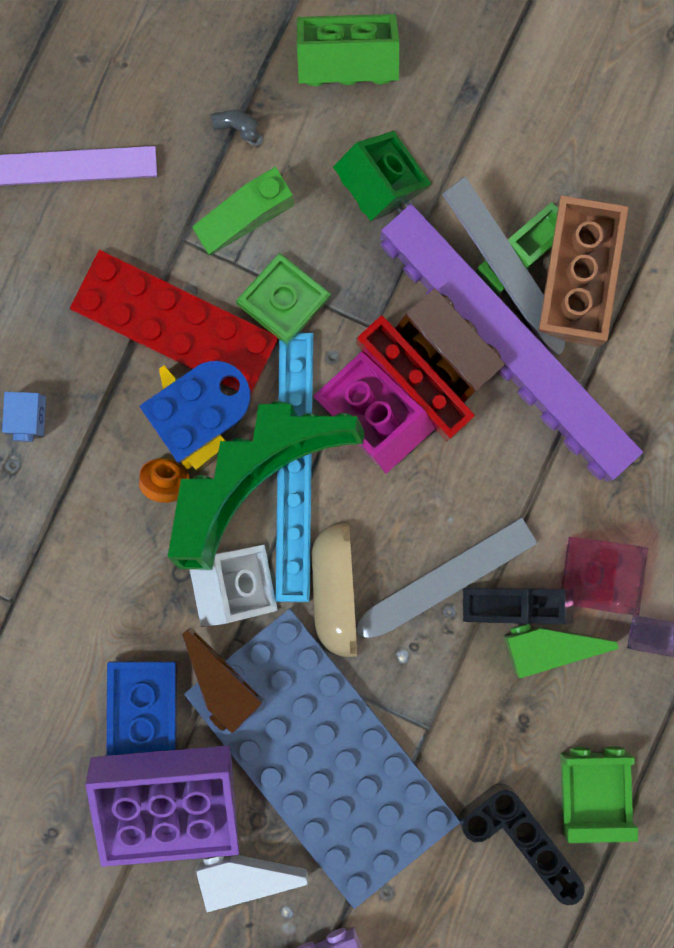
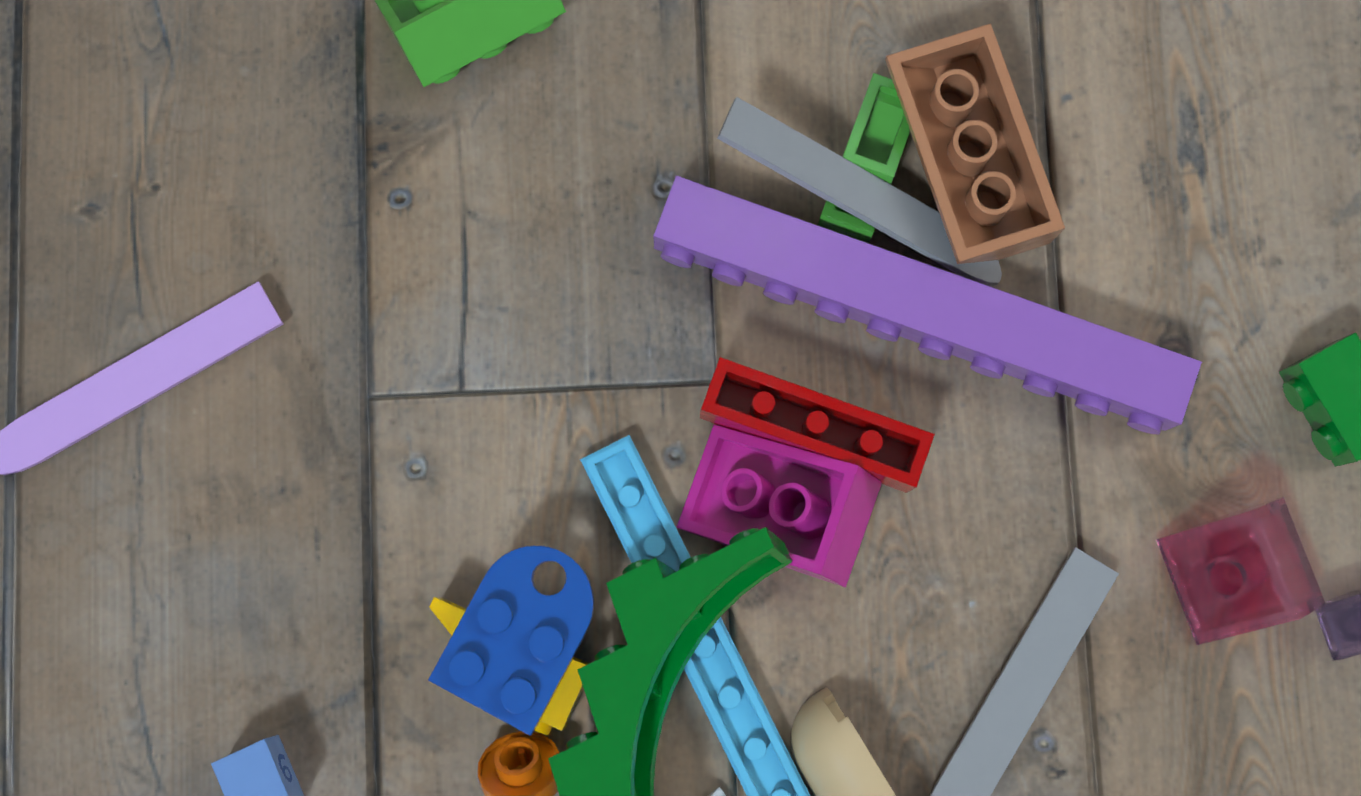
camera: 30 degrees left, 5 degrees down
(171, 320) = (409, 523): red plate -> none
(237, 120) = (364, 184): dark grey arm -> none
(244, 211) = (438, 309): bright green slope -> none
(283, 299) = (560, 407): bright green tile -> none
(381, 174) = (609, 158): green slope -> none
(450, 344) = (843, 350): reddish brown slope -> none
(518, 605) = (1142, 681): black slope -> none
(543, 648) = (1217, 726): bright green slope -> none

